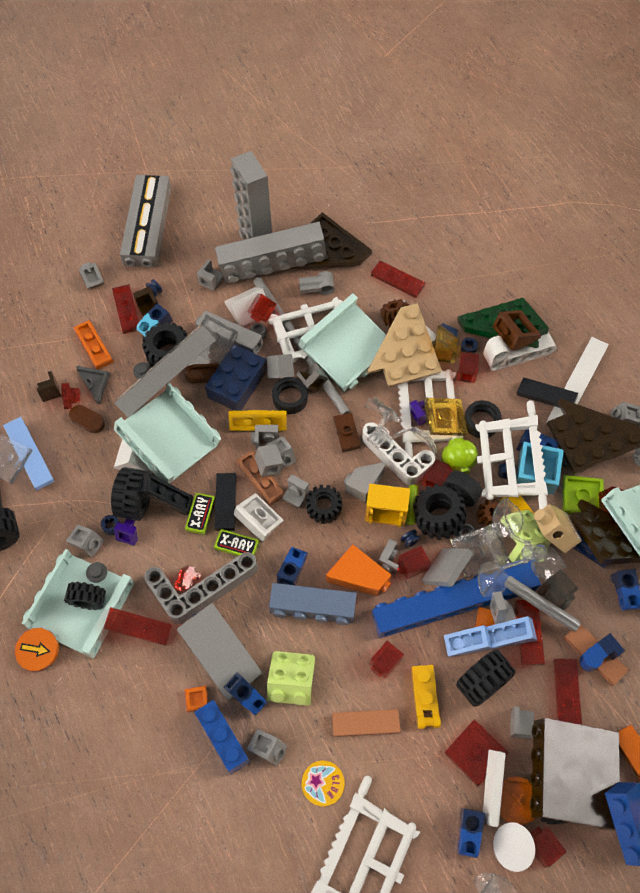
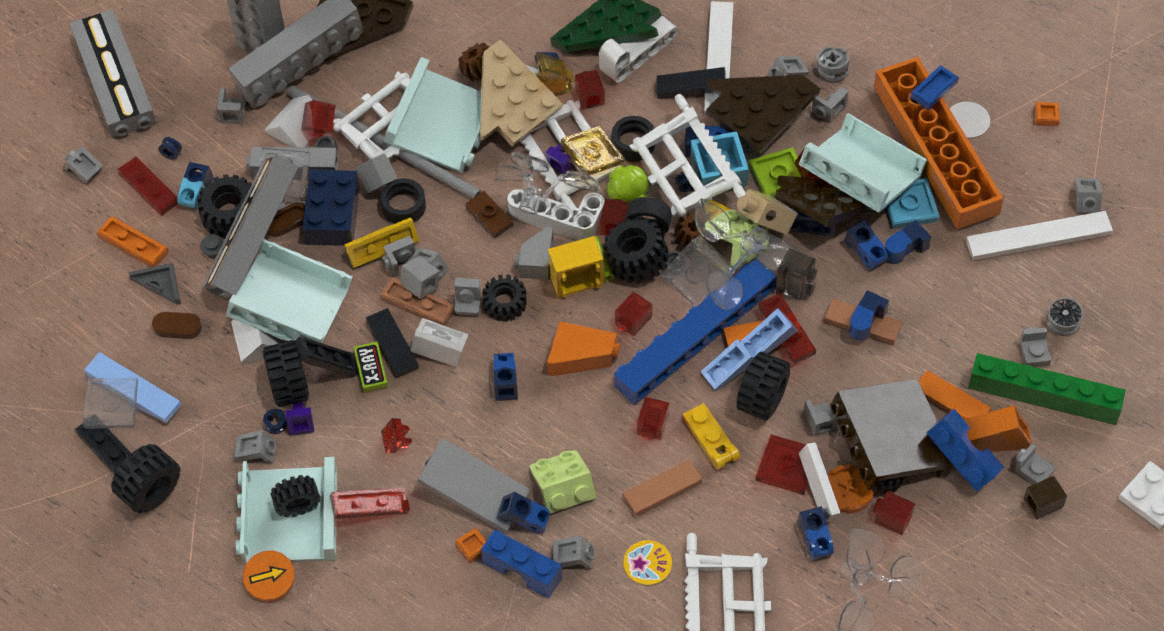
camera: 25 degrees left, 5 degrees down
(49, 389) = (111, 310): dark brown panel -> none
(69, 395) = (141, 307): clear red tile -> none
(96, 572) = (289, 469): dark grey plate -> none
(145, 300) = (170, 167): dark brown panel -> none
(200, 589) = (417, 440): light grey beam -> none
(235, 543) = (430, 380): tile -> none
(312, 603) = (546, 399): sand blue brick -> none
(313, 377) = (420, 170): dark brown panel -> none
(322, 283) = (372, 62): light grey piece -> none
(388, 556) = (603, 318): light grey bracket -> none
(398, 279) = (458, 23): clear red tile -> none
(410, 538) = (617, 292): dark blue bush -> none
(447, 567) = (671, 301): light grey tile -> none
(469, 341) = (578, 60): dark blue bush -> none
(501, 609) = (745, 315): light grey bracket -> none
(511, 333) = (621, 30): reddish brown tile -> none
(514, 847) = (864, 516): white sticker -> none
(542, 603) = (786, 293): light grey axle -> none
(567, 691) = (848, 363): clear red tile -> none

